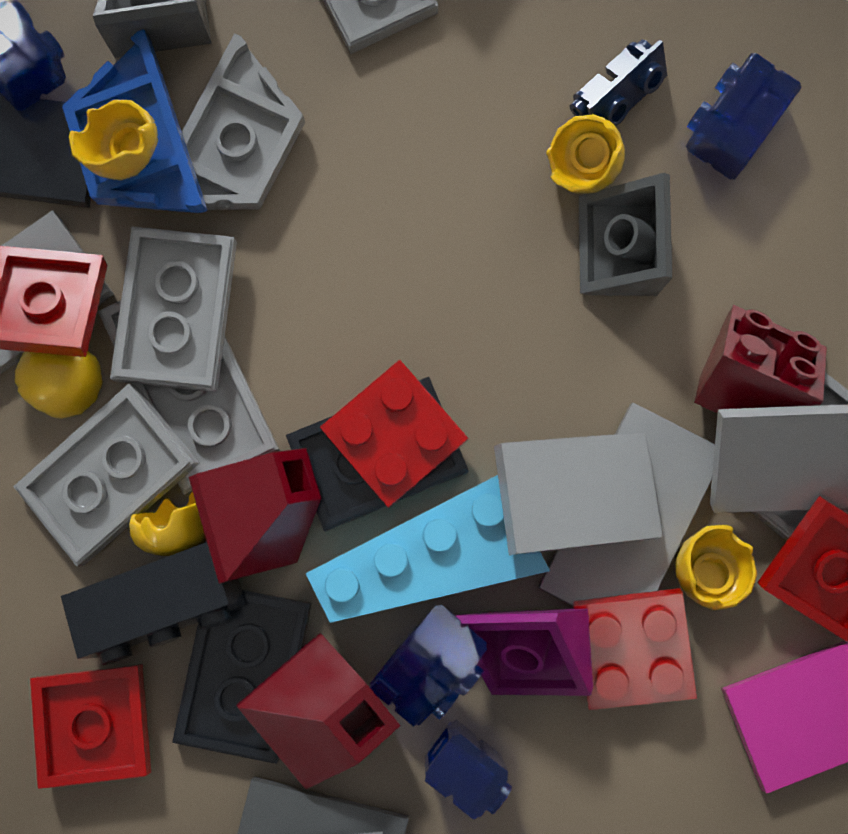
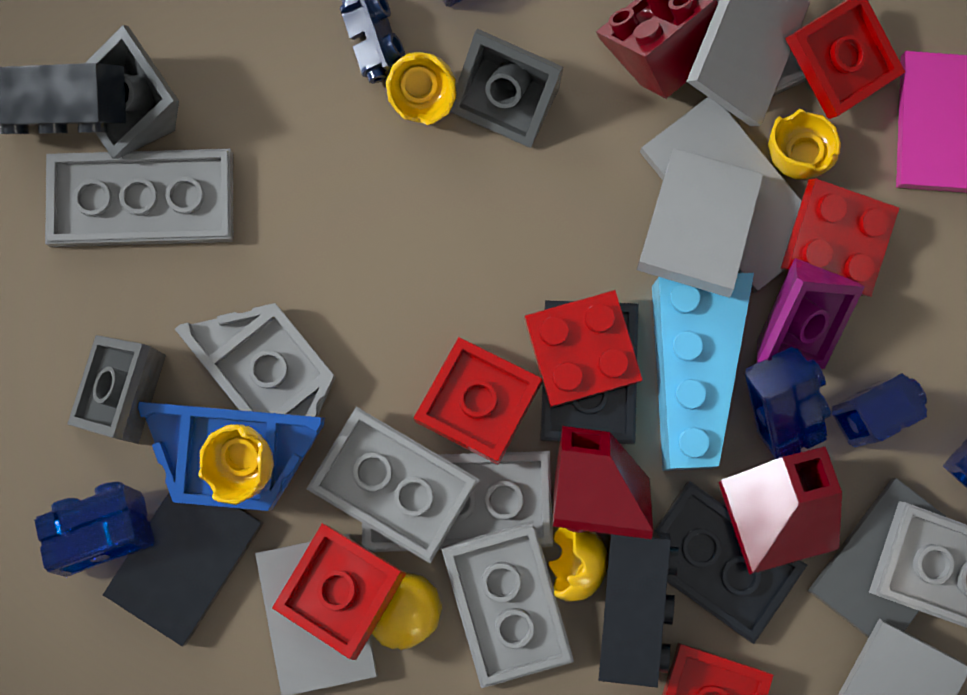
camera: 65 degrees left, 0 degrees up
(294, 354) = (478, 400): none -> red plate

